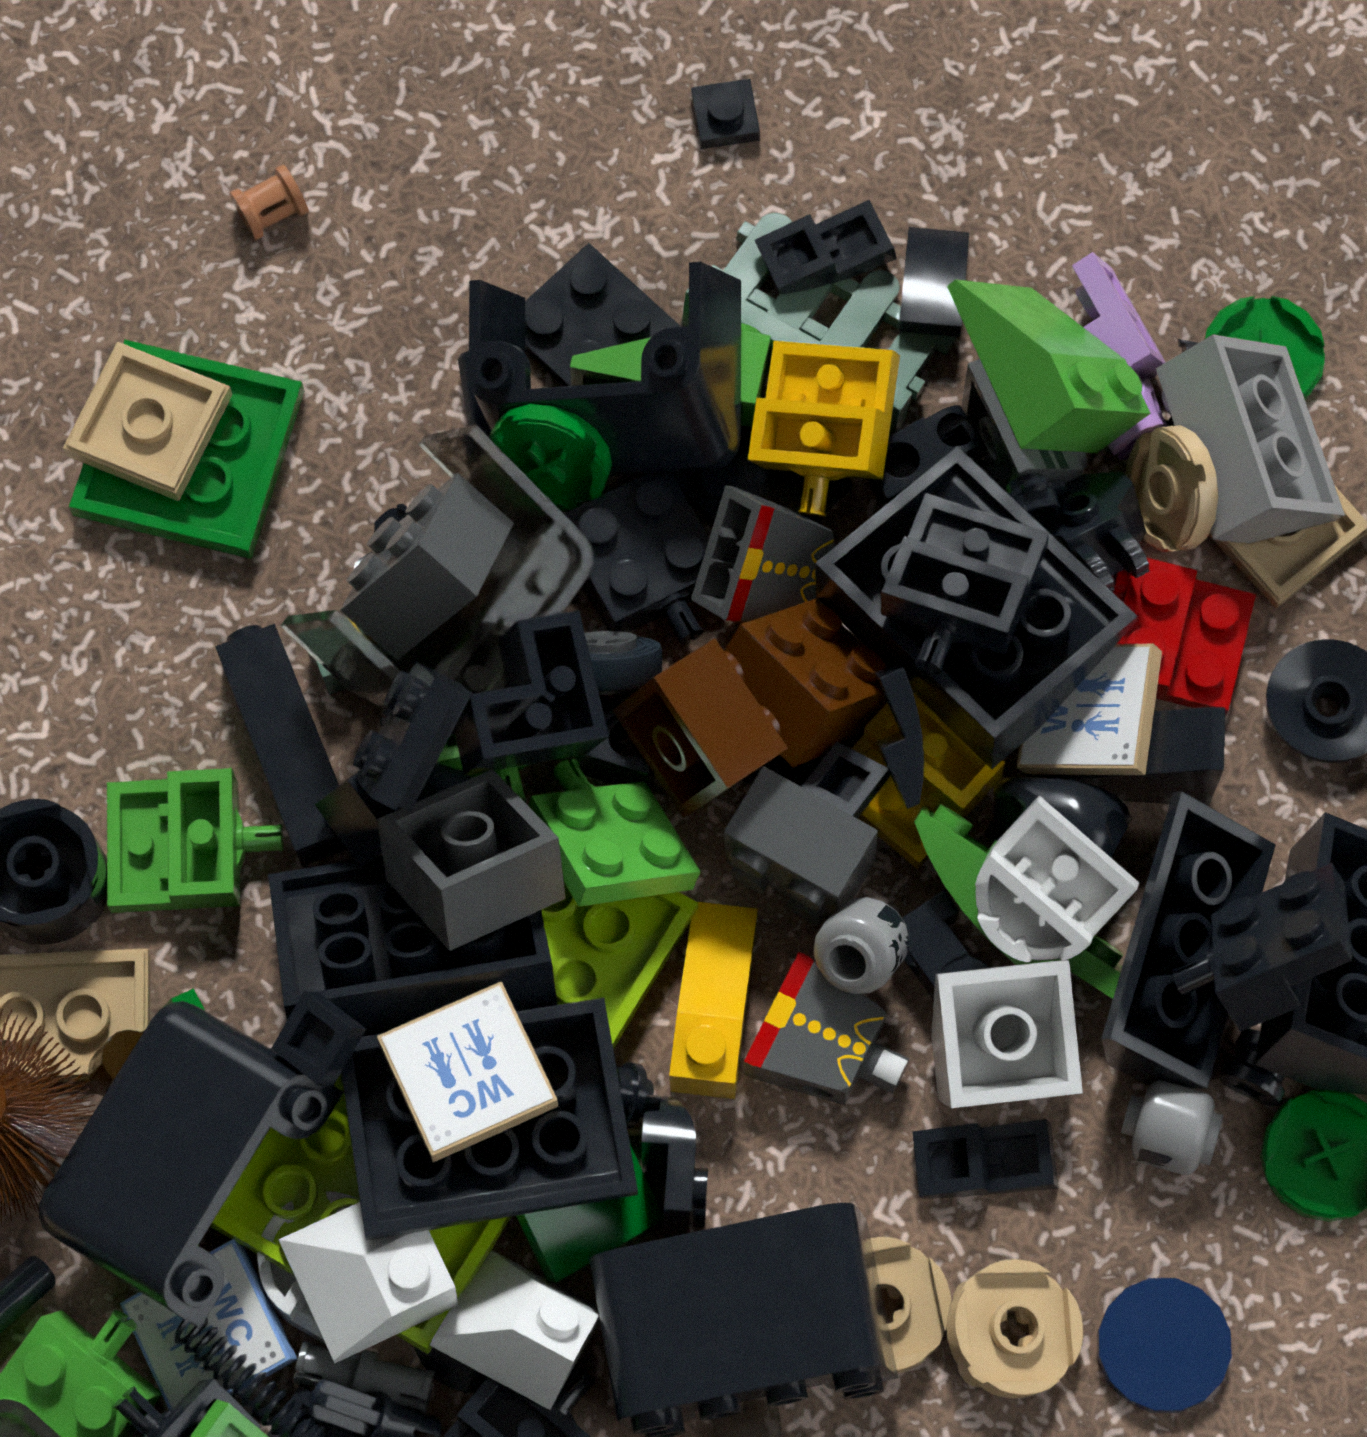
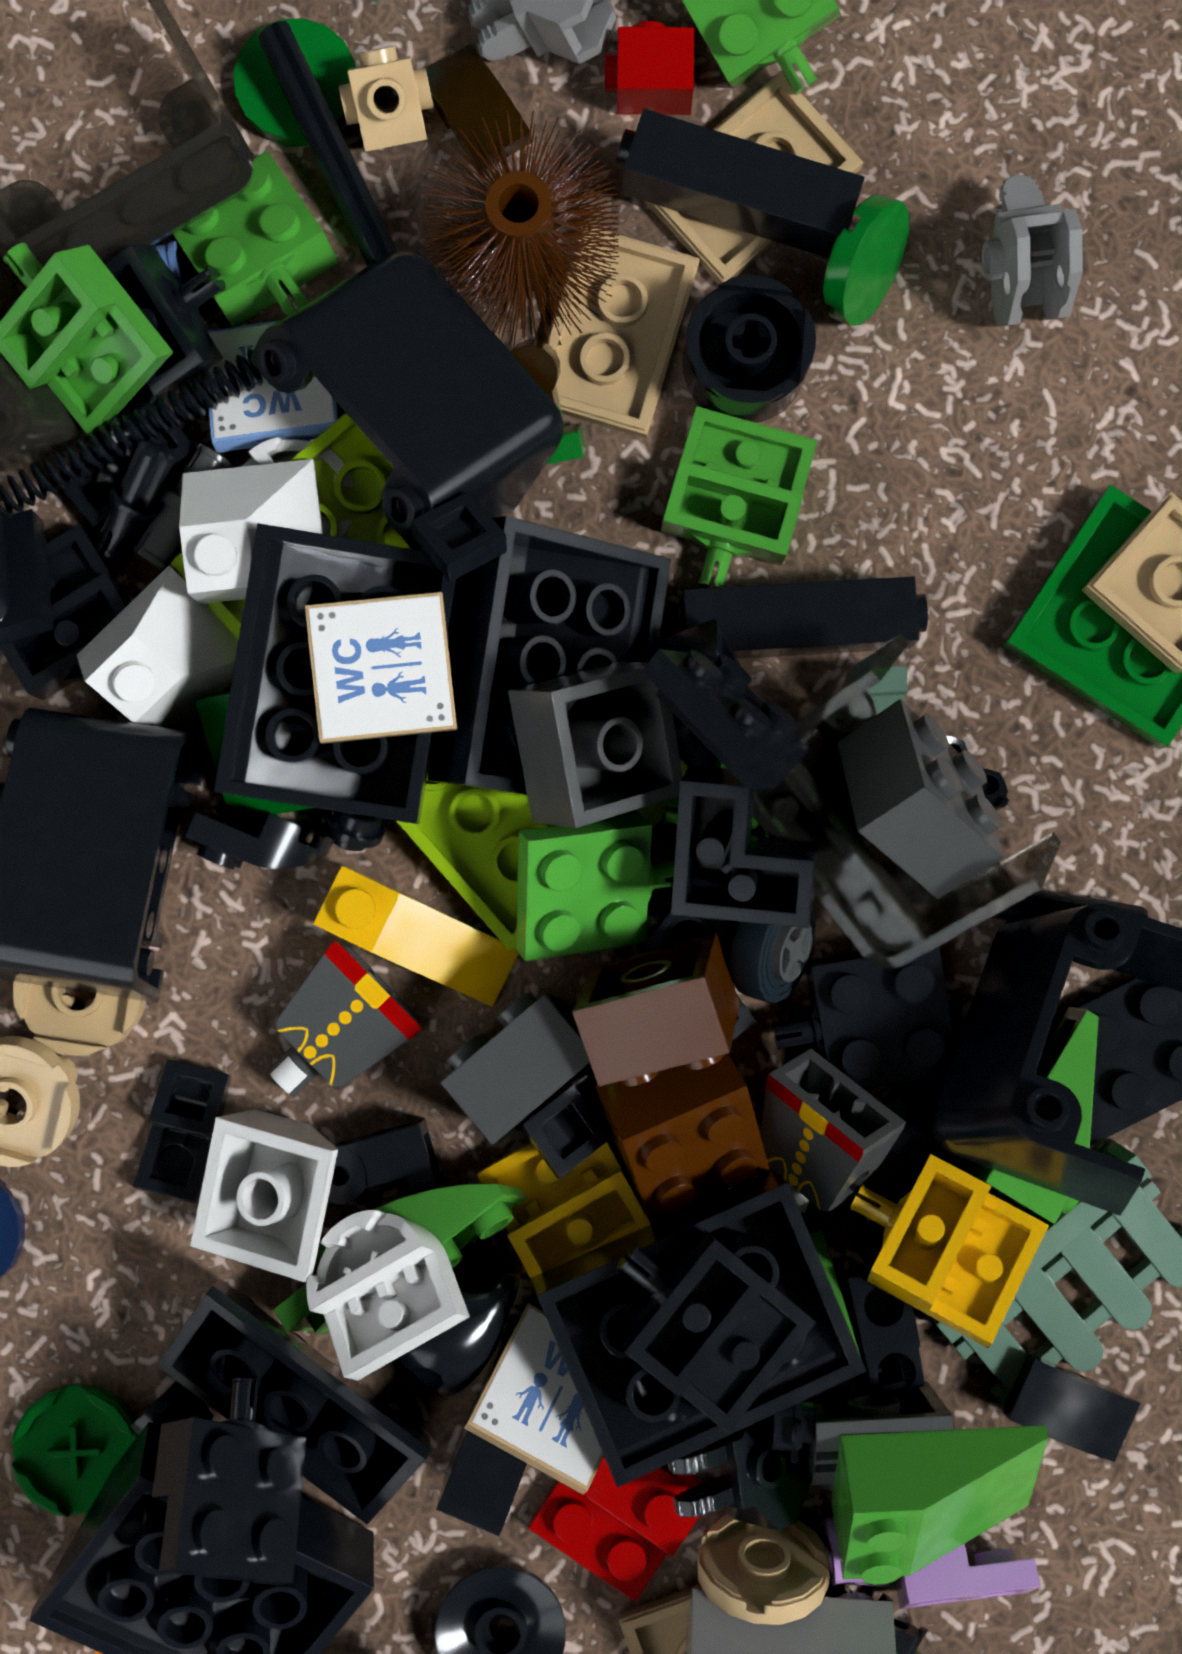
camera: 105 degrees right, 15 degrees up
(555, 452) = (1002, 960): green tile -> none
(827, 252) = (1136, 1312): black slope -> none
(861, 945) = (398, 1089): light grey head -> none
(902, 750) = (579, 1204): black slope -> none
(1172, 1127) = (140, 1317): light grey head -> none

